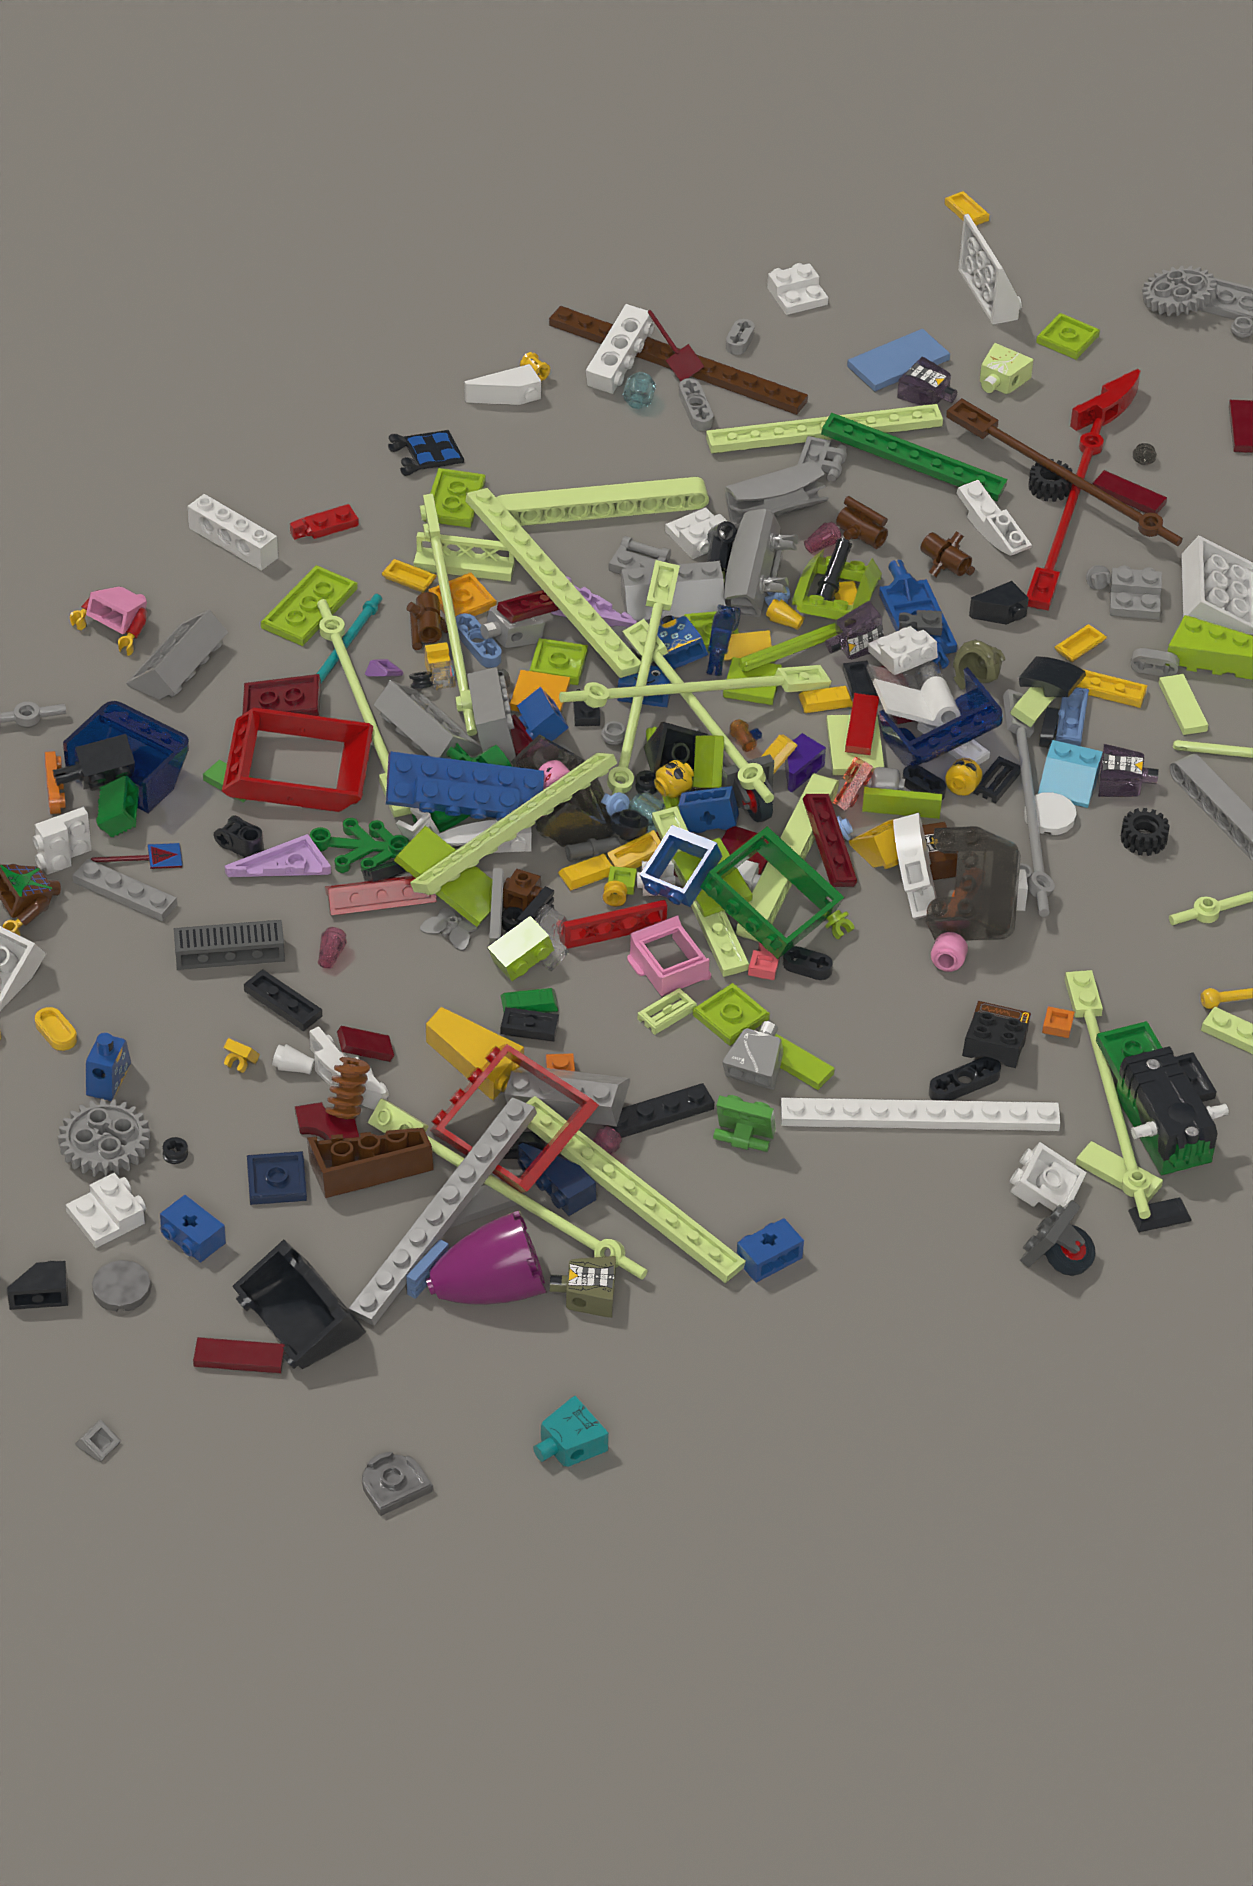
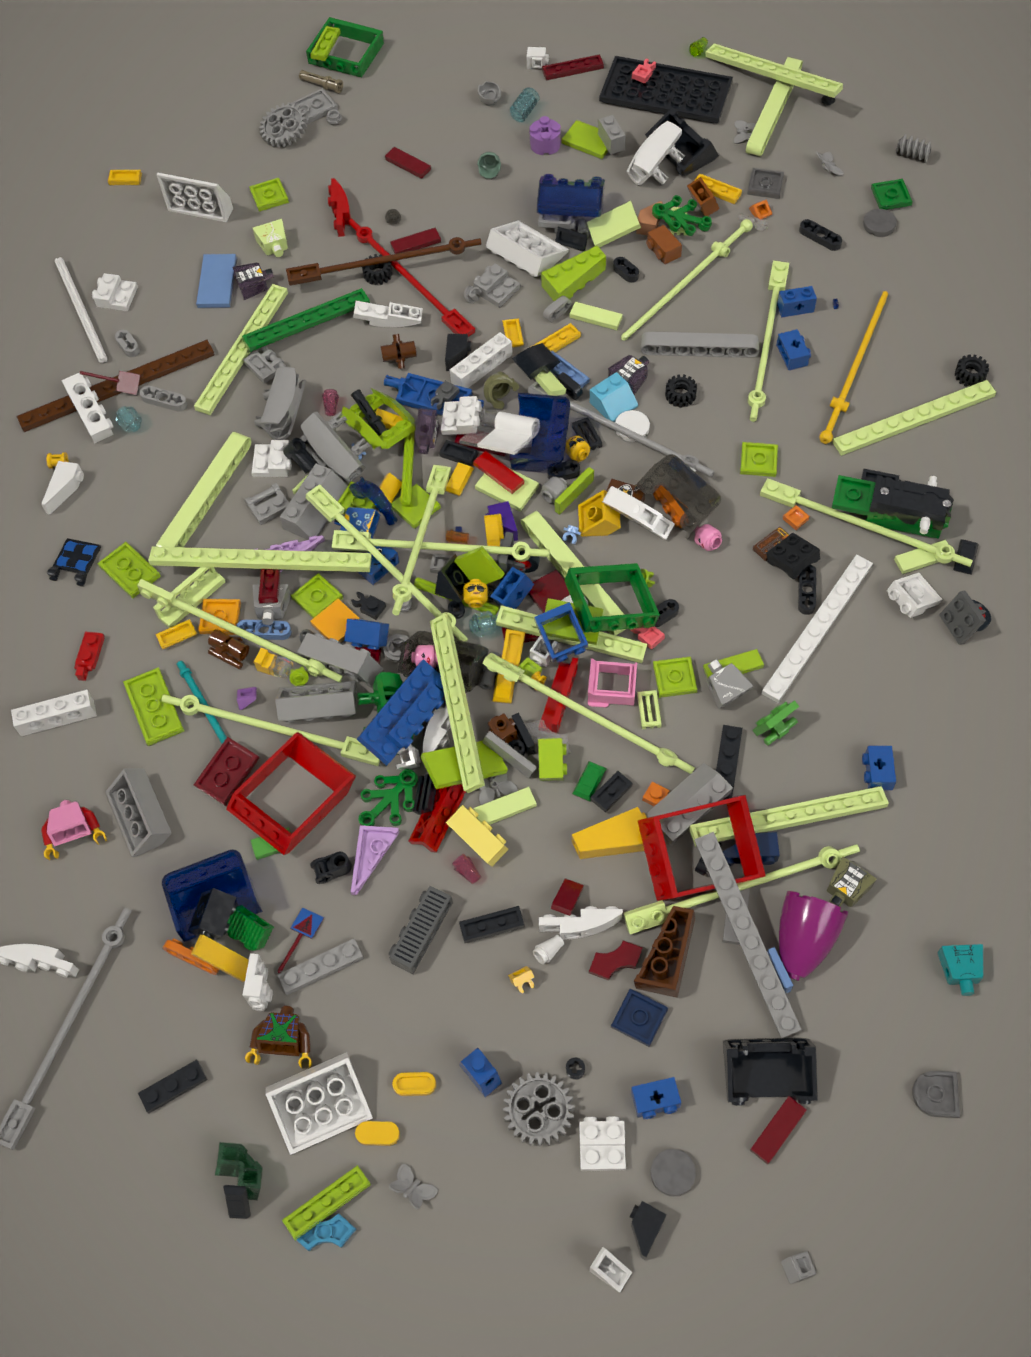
camera: 50 degrees left, 15 degrees up
(64, 786) = (221, 957): none -> yellow tile
(349, 1089) = (609, 931): dark orange piece -> none
(376, 934) = (478, 835): none -> light yellow brick
(421, 680) = (275, 681): black bush -> none
(434, 946) = (506, 806): none -> yellowish green tile
(443, 696) = (298, 676): none -> lime plate
(592, 850) = (514, 673): none -> yellowish green bar
(615, 803) = (471, 636): light blue plate -> none
(629, 824) = (492, 639): black plate -> none
(747, 277) = (86, 322): none -> white axle
(784, 614) = (375, 458): yellow cone -> none
(830, 840) = (581, 543): dark red tile -> none
(856, 775) = (547, 501): clear red plate -> none
(862, 523) = (338, 375): reddish brown pin -> none
(1006, 632) = (481, 361): none -> white brick
(1116, 952) = (759, 459): none -> lime tile

